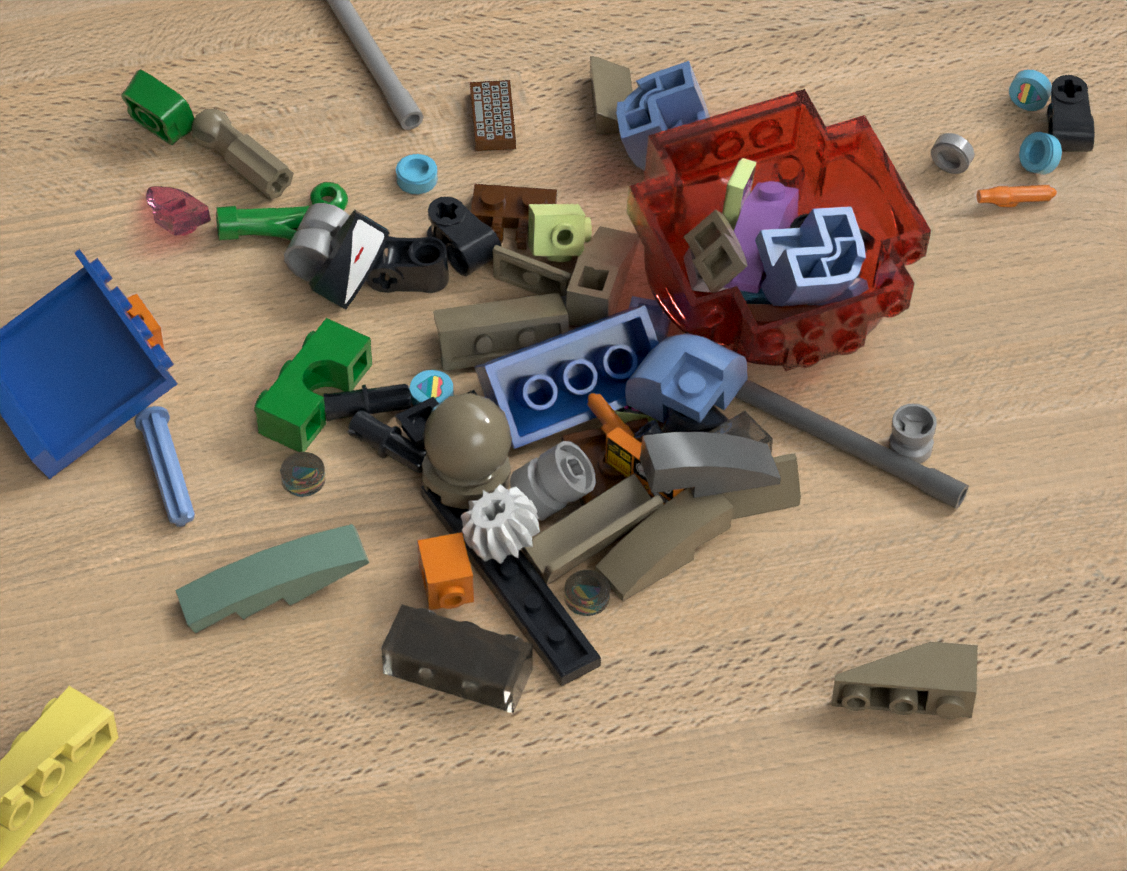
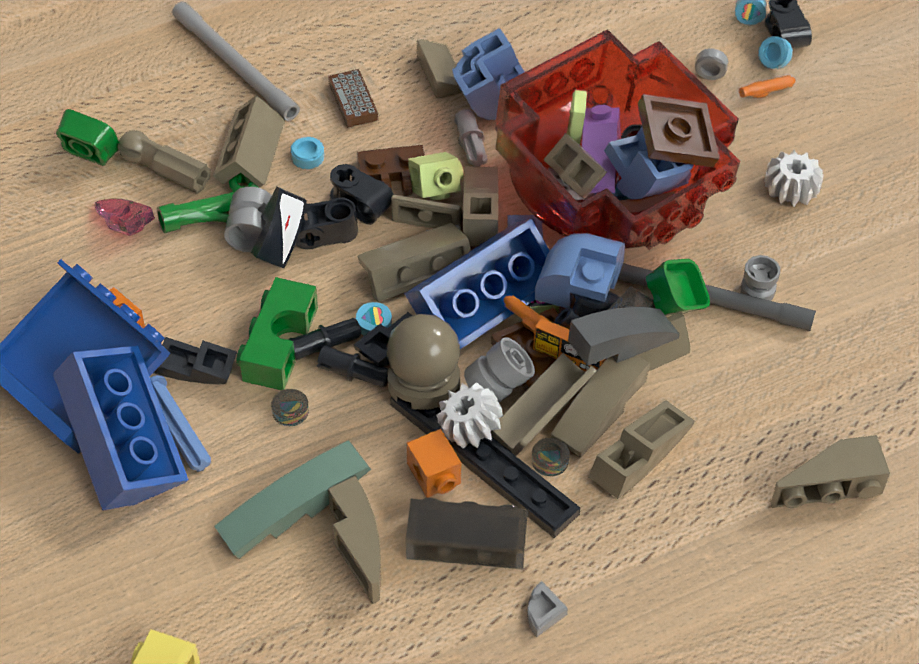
camera: 15 degrees left, 0 degrees up
(98, 454) = (119, 425): none -> blue slope
(211, 403) = (193, 364): none -> black slope
(332, 634) = (357, 534): none -> dark tan slope
(350, 149) = (250, 143): none -> dark tan panel
(521, 762) = (544, 609): none -> light grey tile
(616, 191) = (471, 138): none -> light grey axle
(694, 604) = (640, 448): none -> dark tan slope
(800, 422) = (678, 287): none -> green piece
(842, 232) = (678, 130): none -> reddish brown plate
(1002, 317) = (793, 178): none -> white gear

